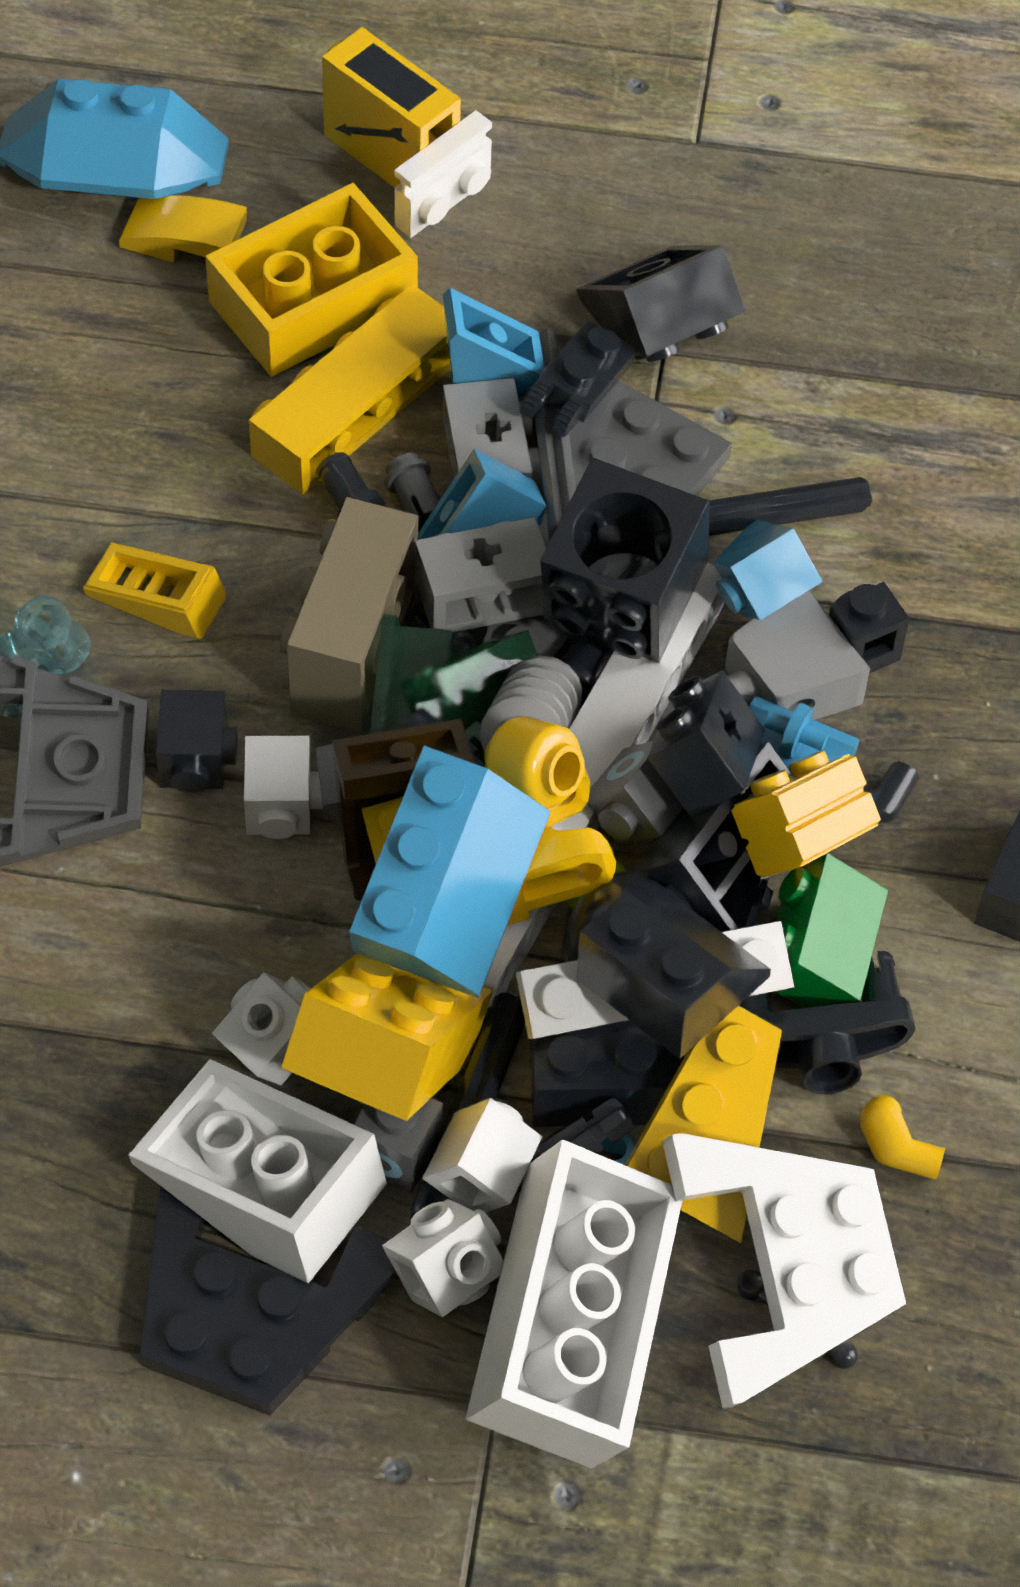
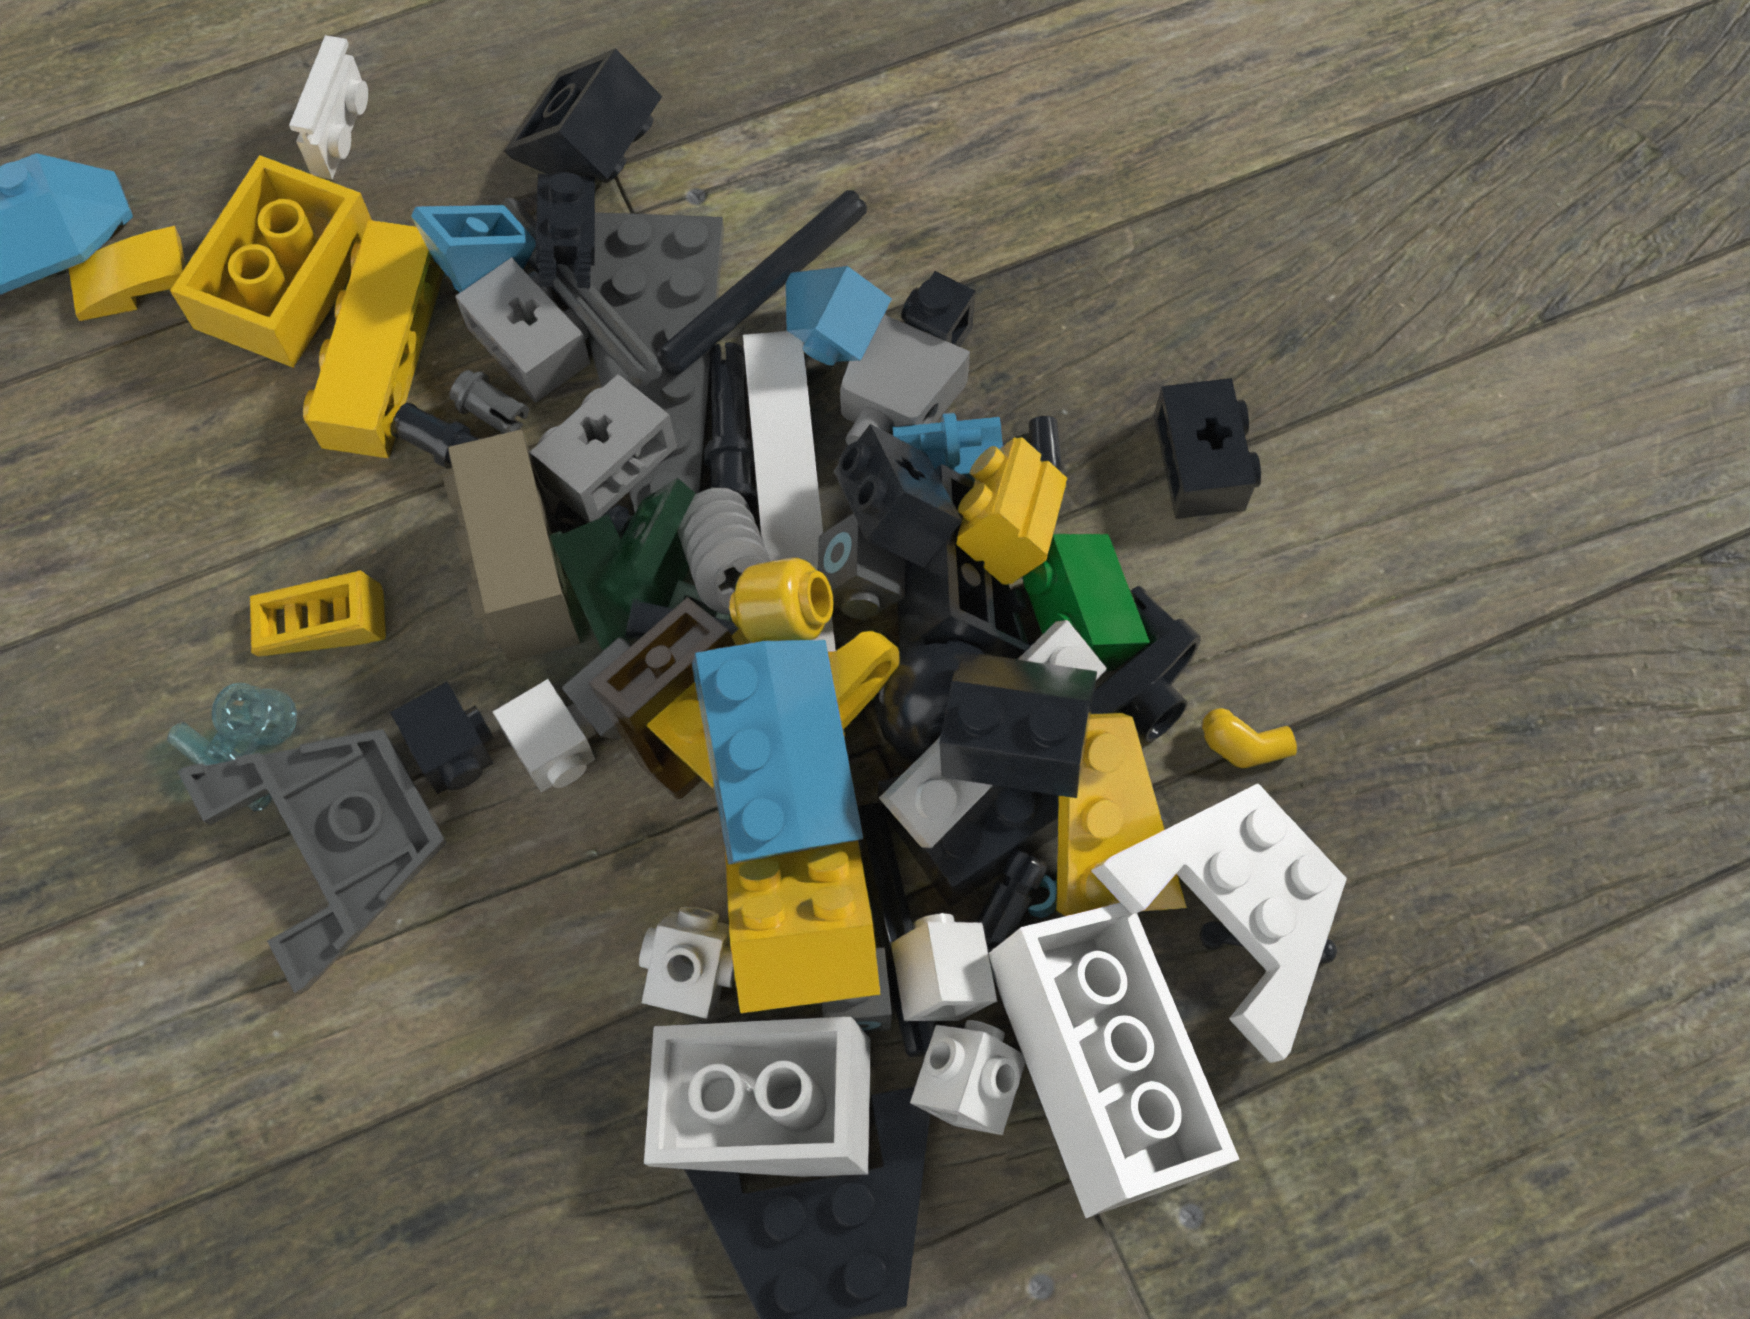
camera: 30 degrees left, 10 degrees up
(382, 104) = (238, 72): yellow brick -> none
(482, 496) = (556, 382): dark azure slope -> none
(634, 515) = (718, 325): black brick -> none

